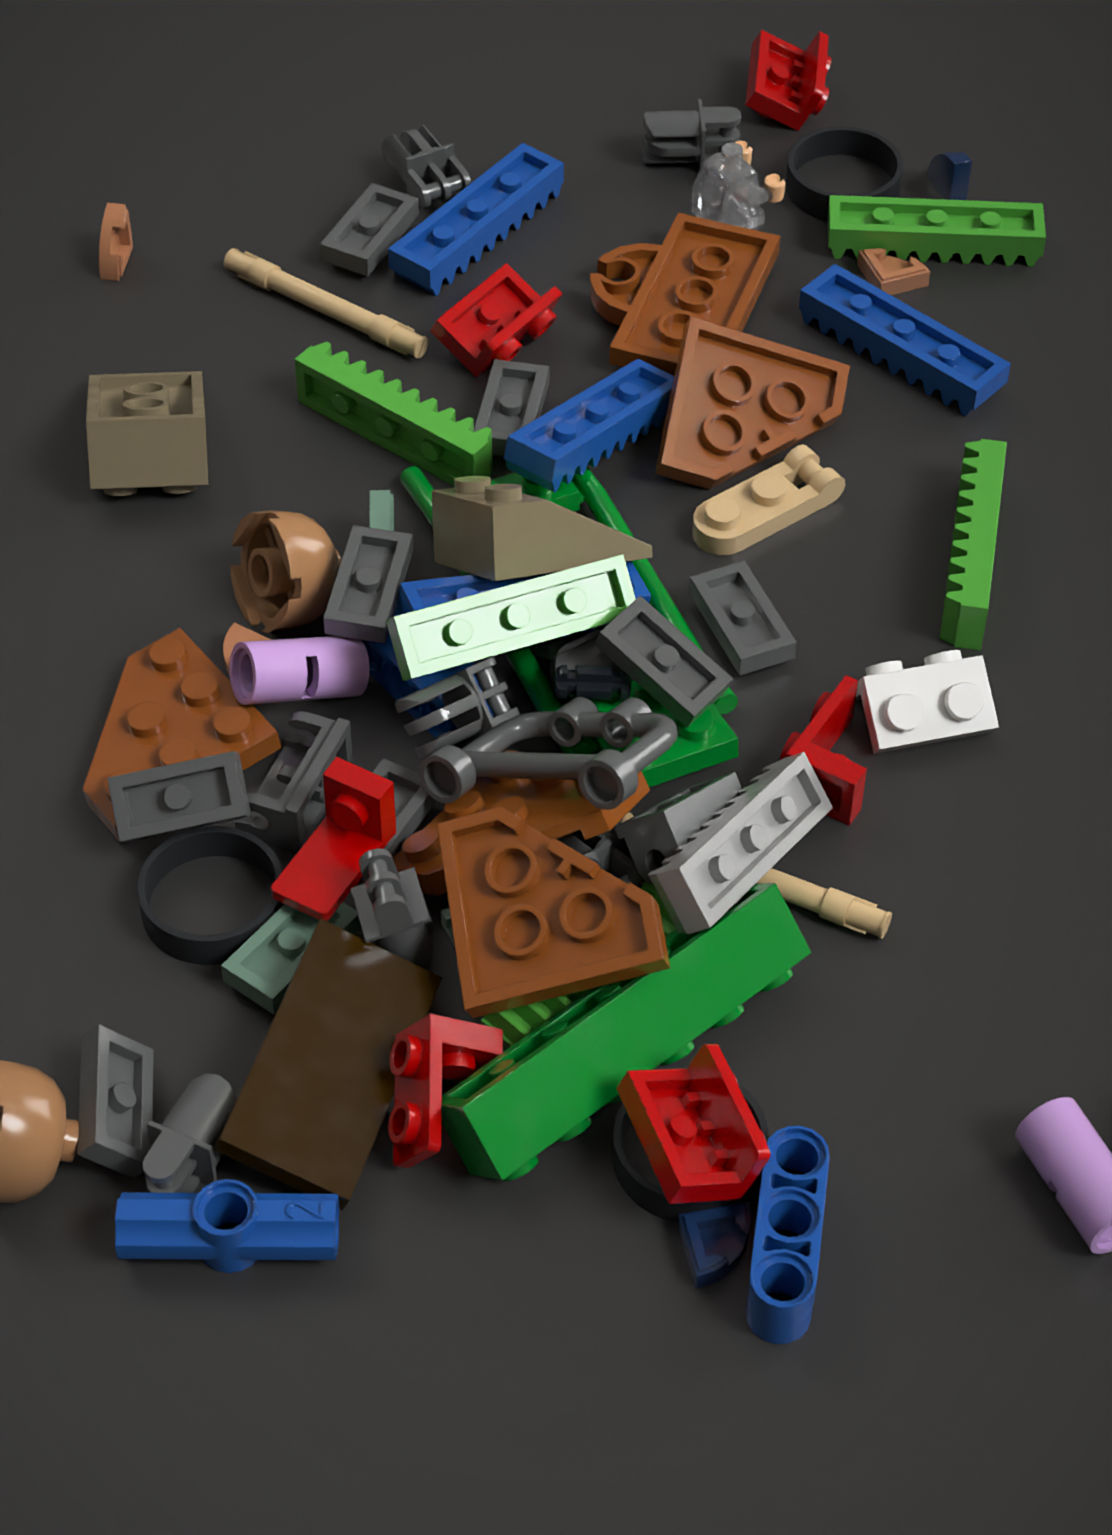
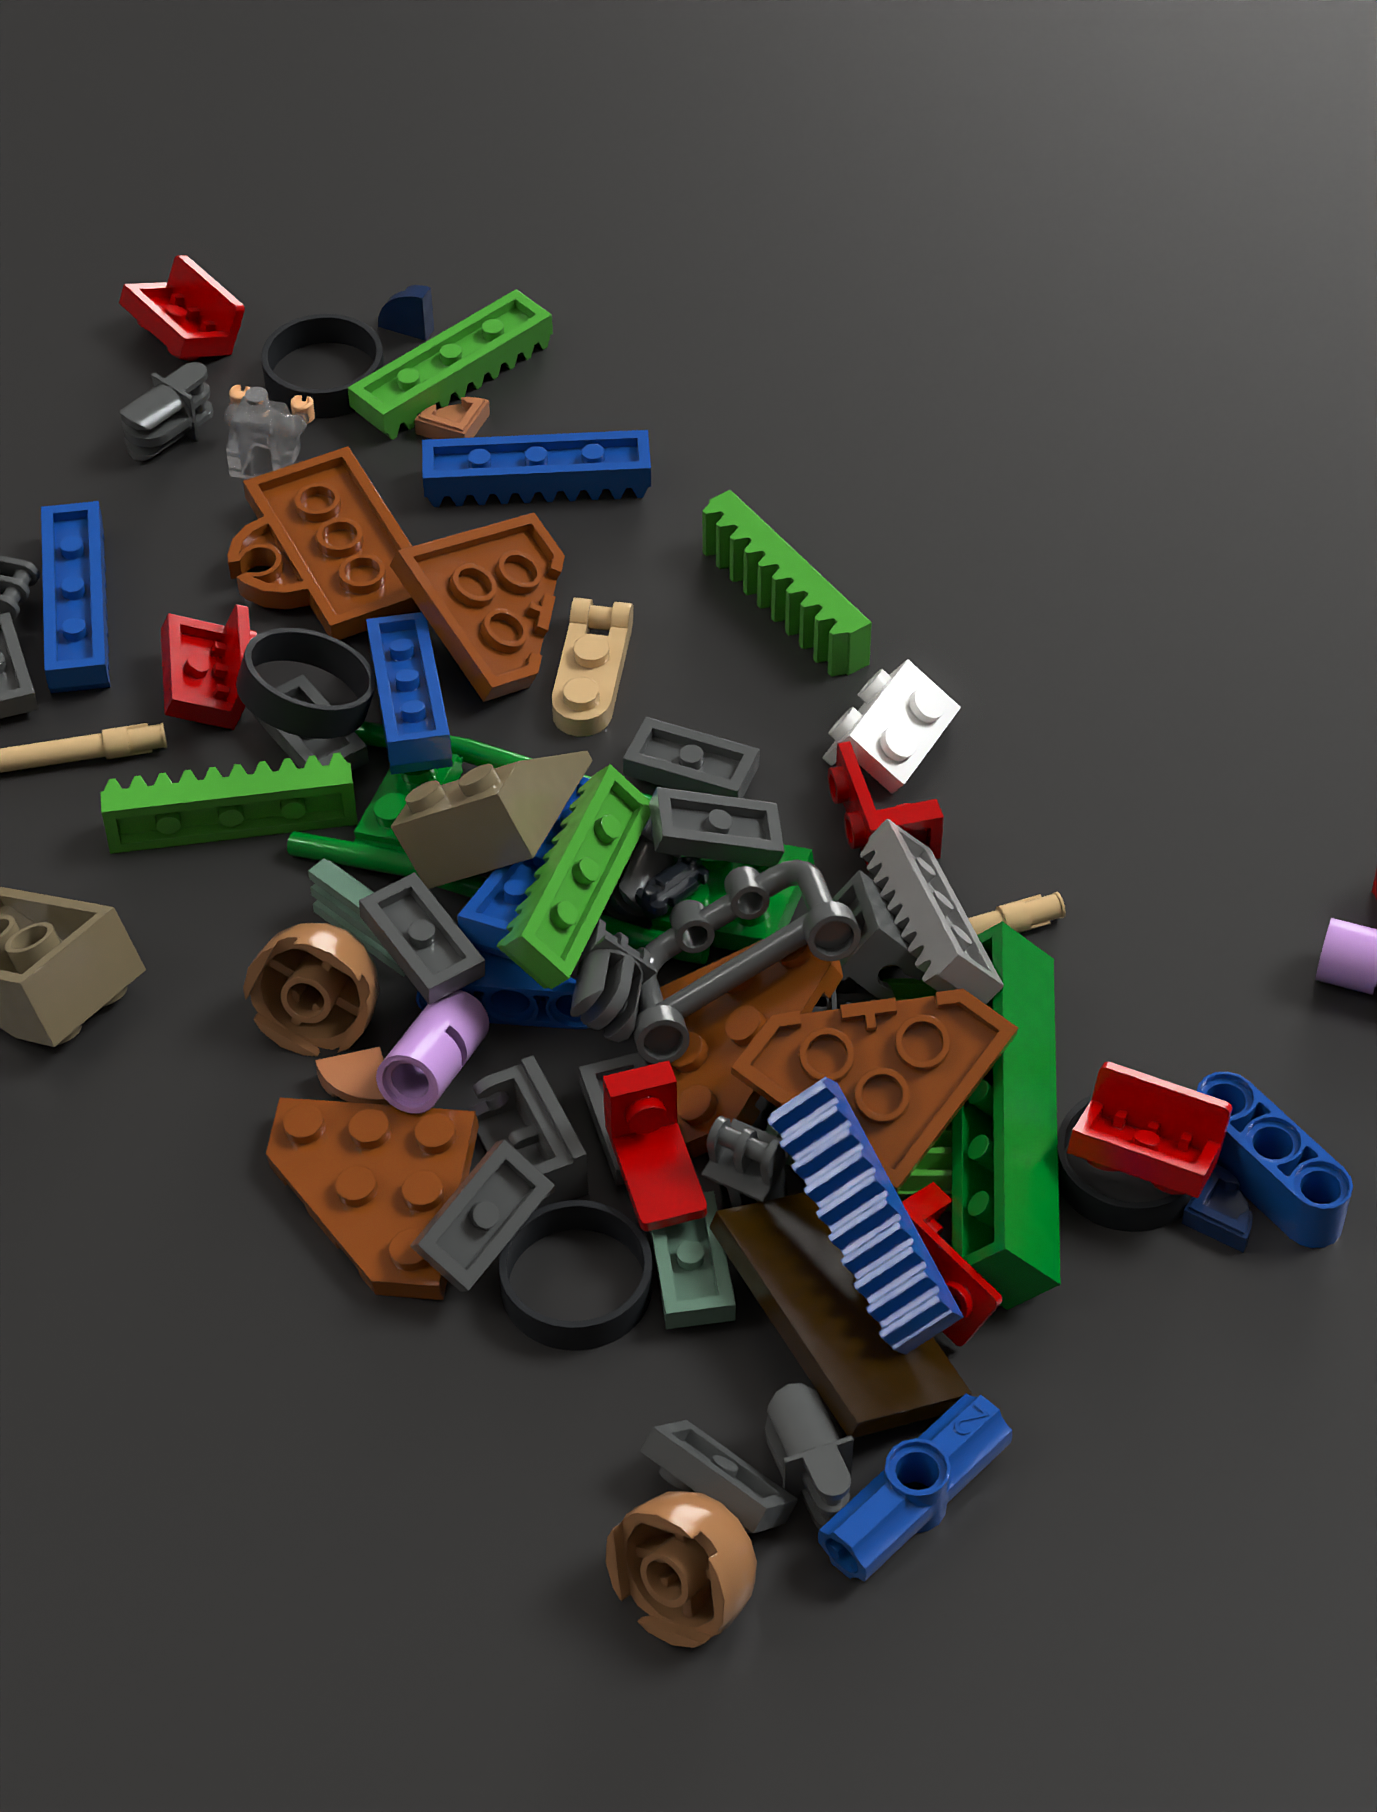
camera: 45 degrees left, 0 degrees up
(398, 1002) = (865, 1216): none -> blue gear
(540, 329) = (298, 716): none -> black tyre

